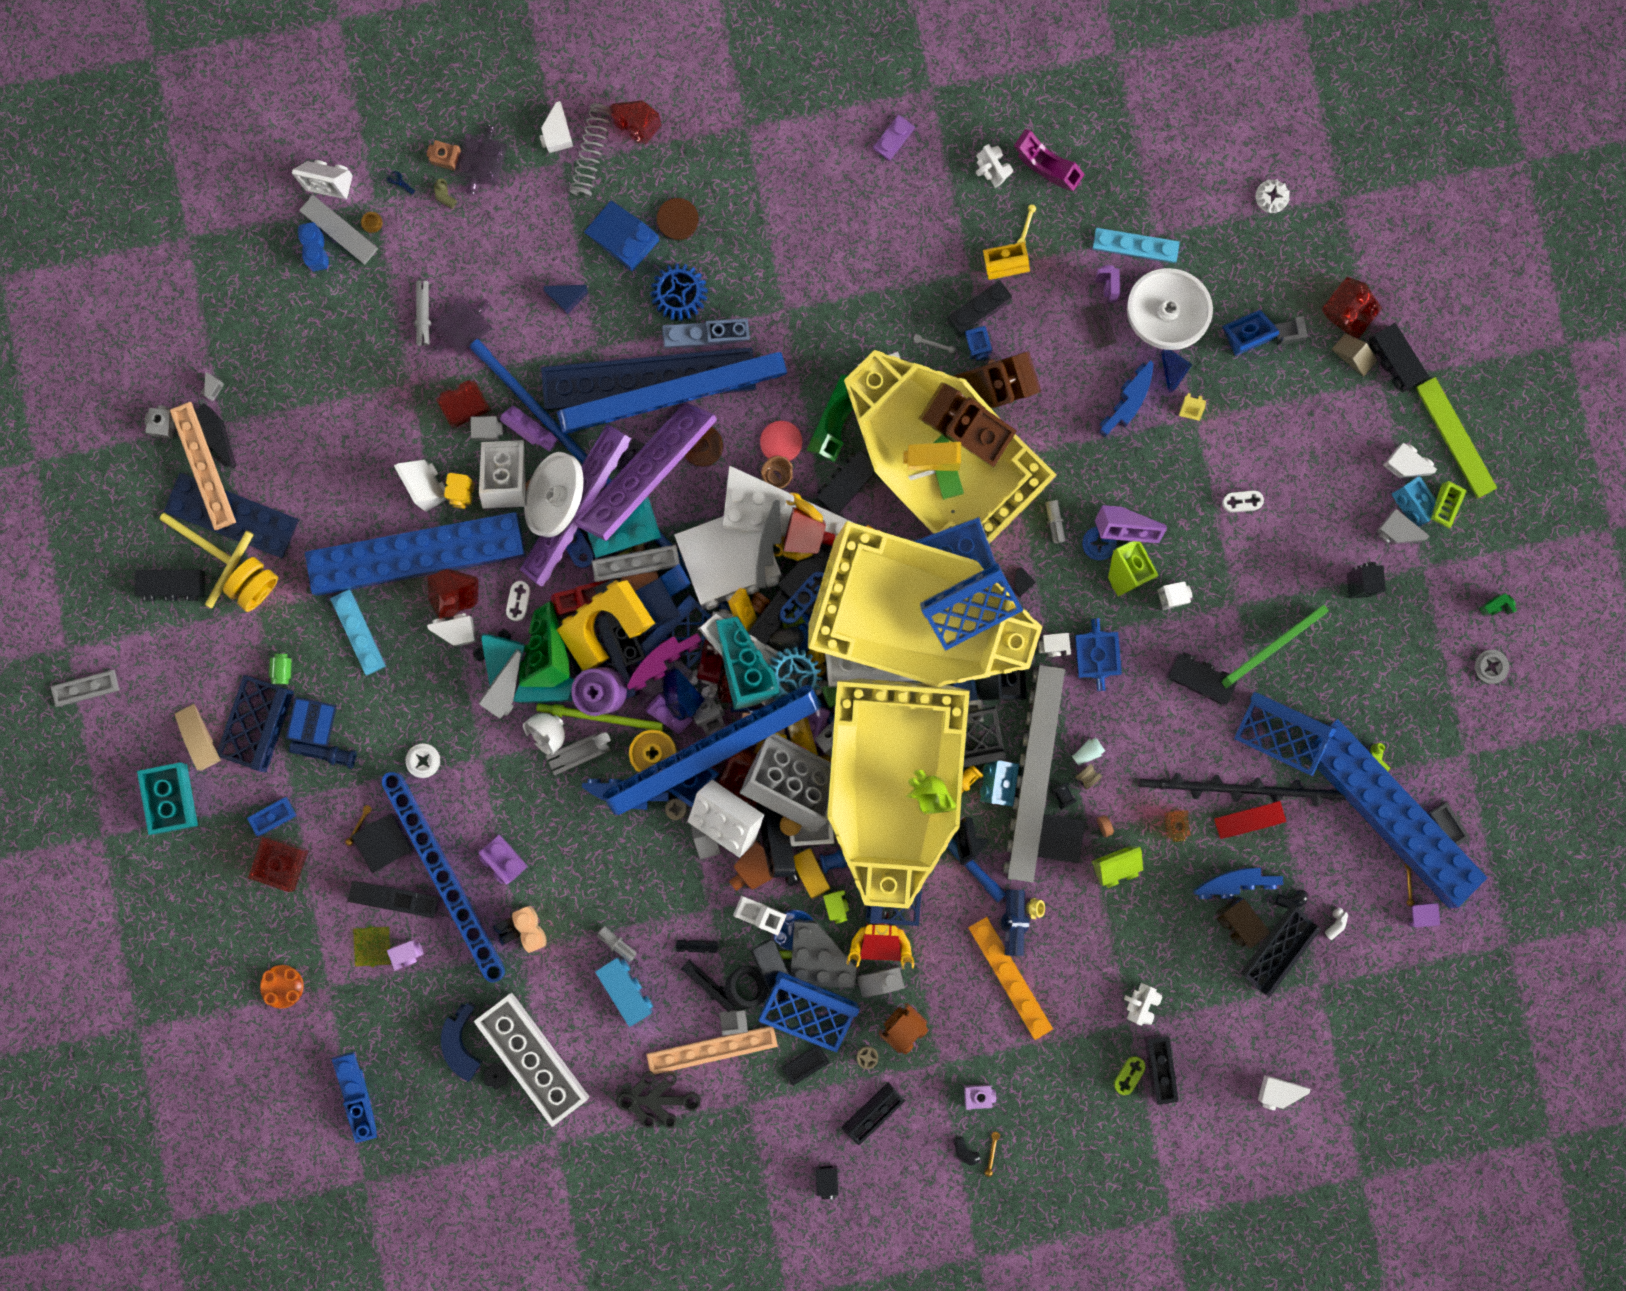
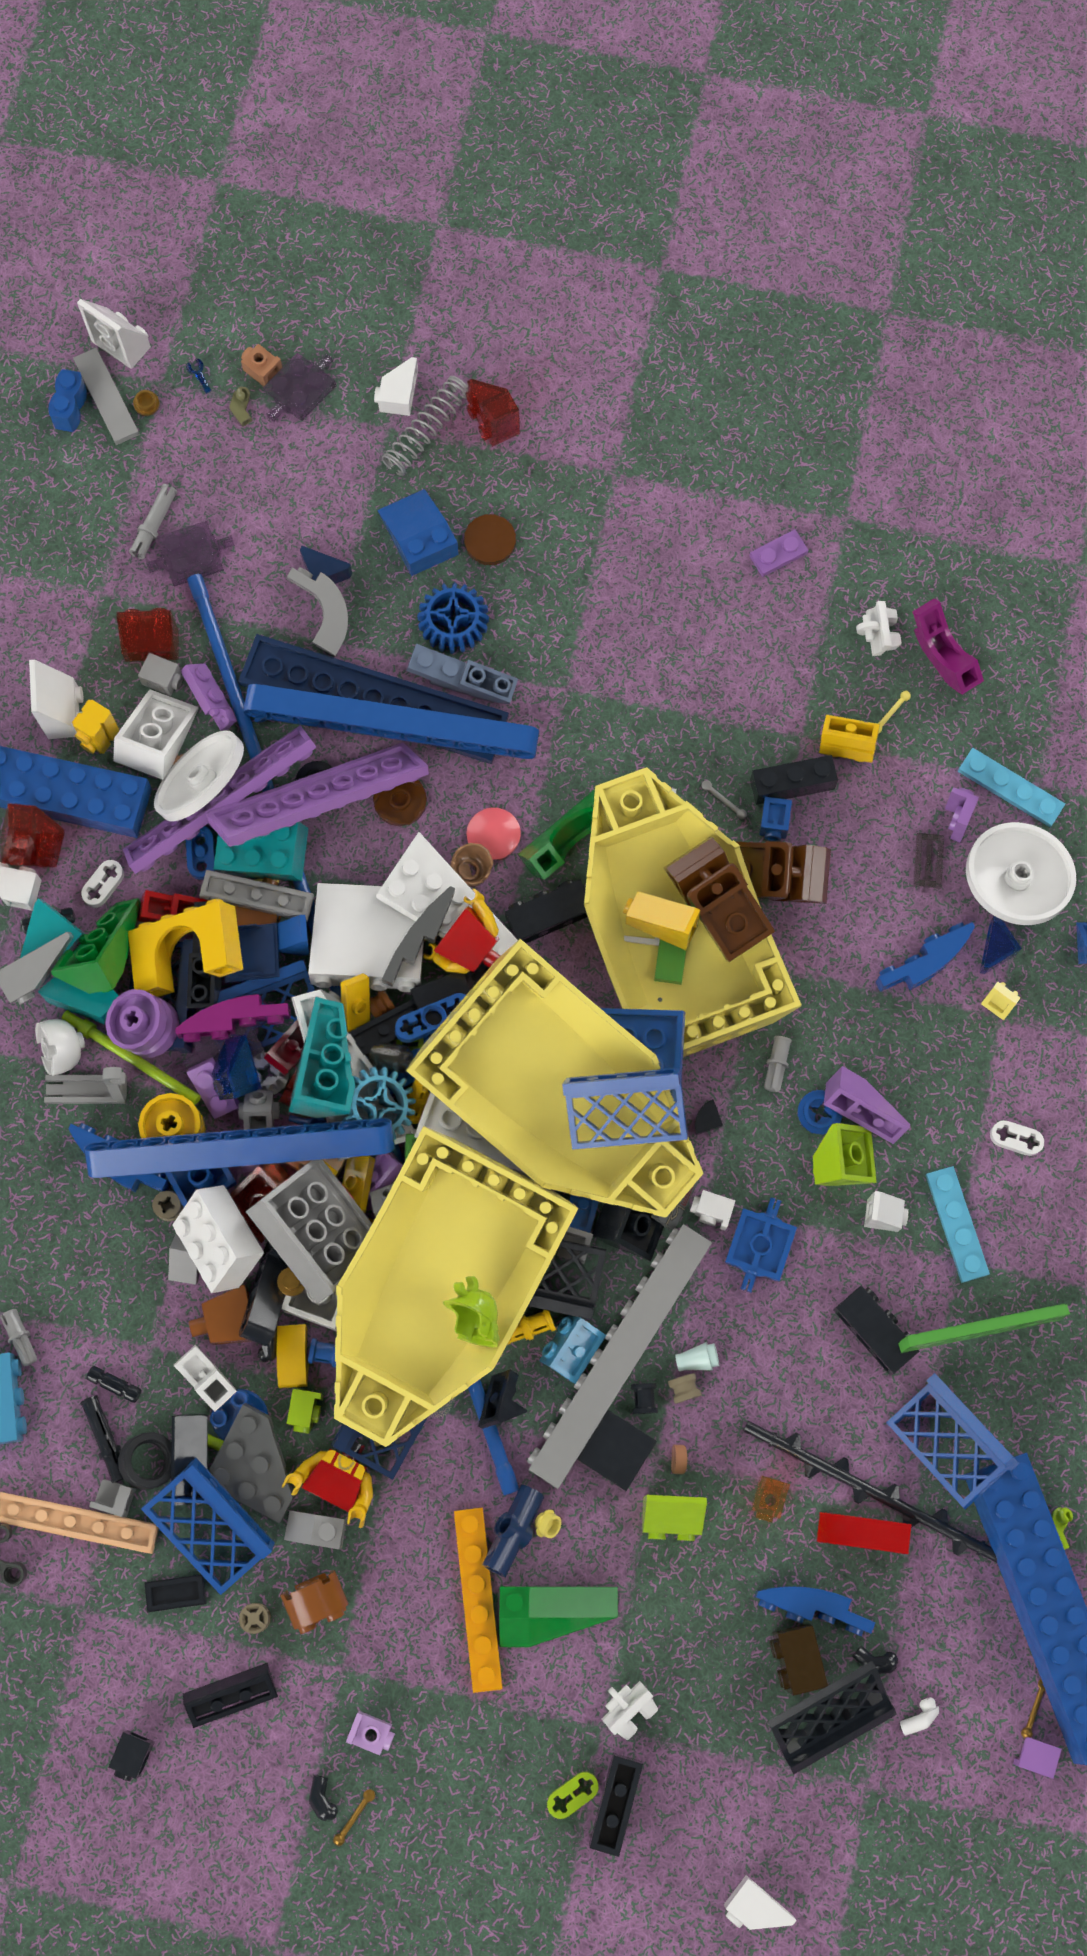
camera: 25 degrees right, 10 degrees down
(594, 332) = (333, 608): none -> light grey arch
(1060, 966) = (547, 1612): none -> green wedge
(1226, 580) = (957, 1224): none -> medium azure plate

